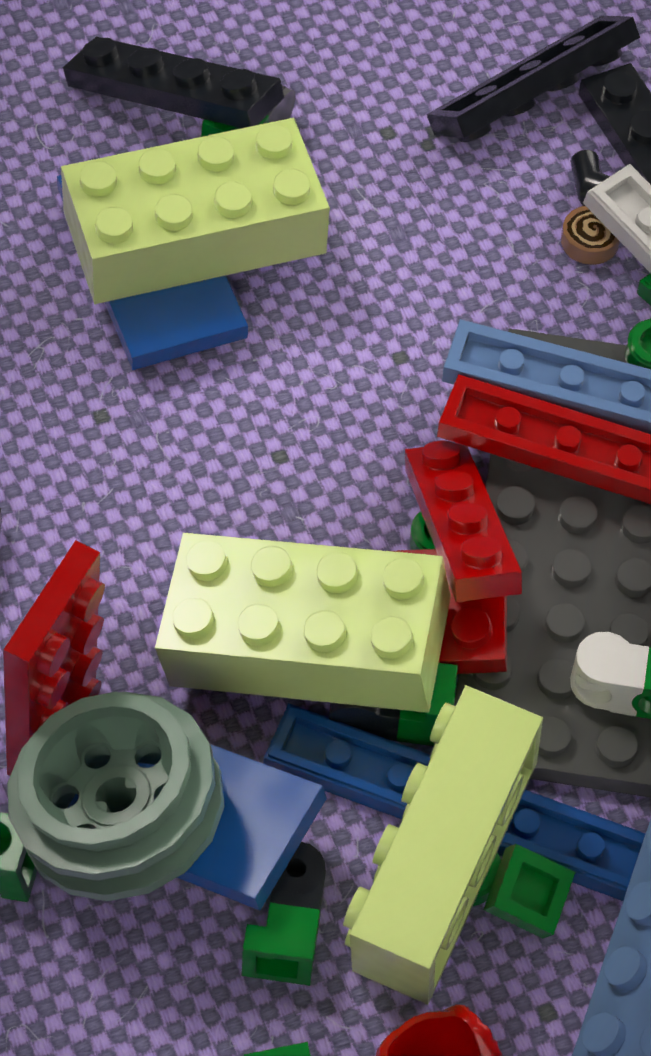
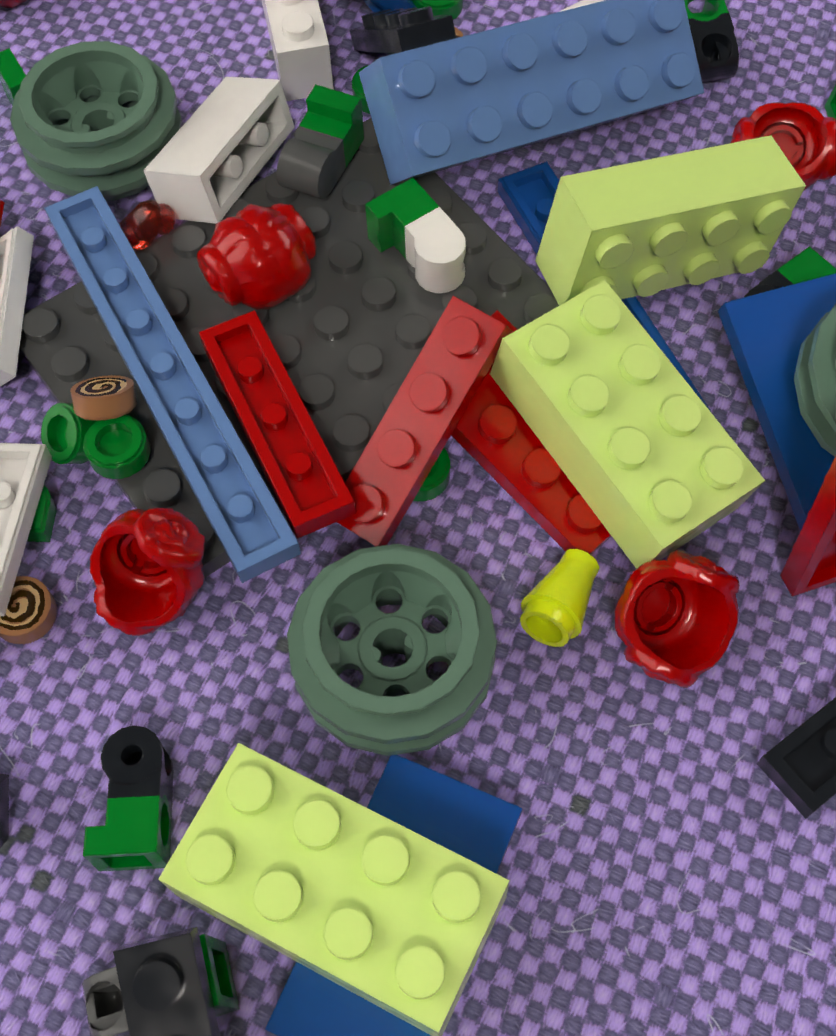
camera: 130 degrees left, 5 degrees up
(137, 539) = (677, 616): none -> red hair
(235, 503) = (559, 602): none -> neon yellow cone
(306, 392) = (400, 705): none -> sand green wheel
(374, 191) = (137, 804): none -> leg
(528, 293) = (147, 569): none -> red hair

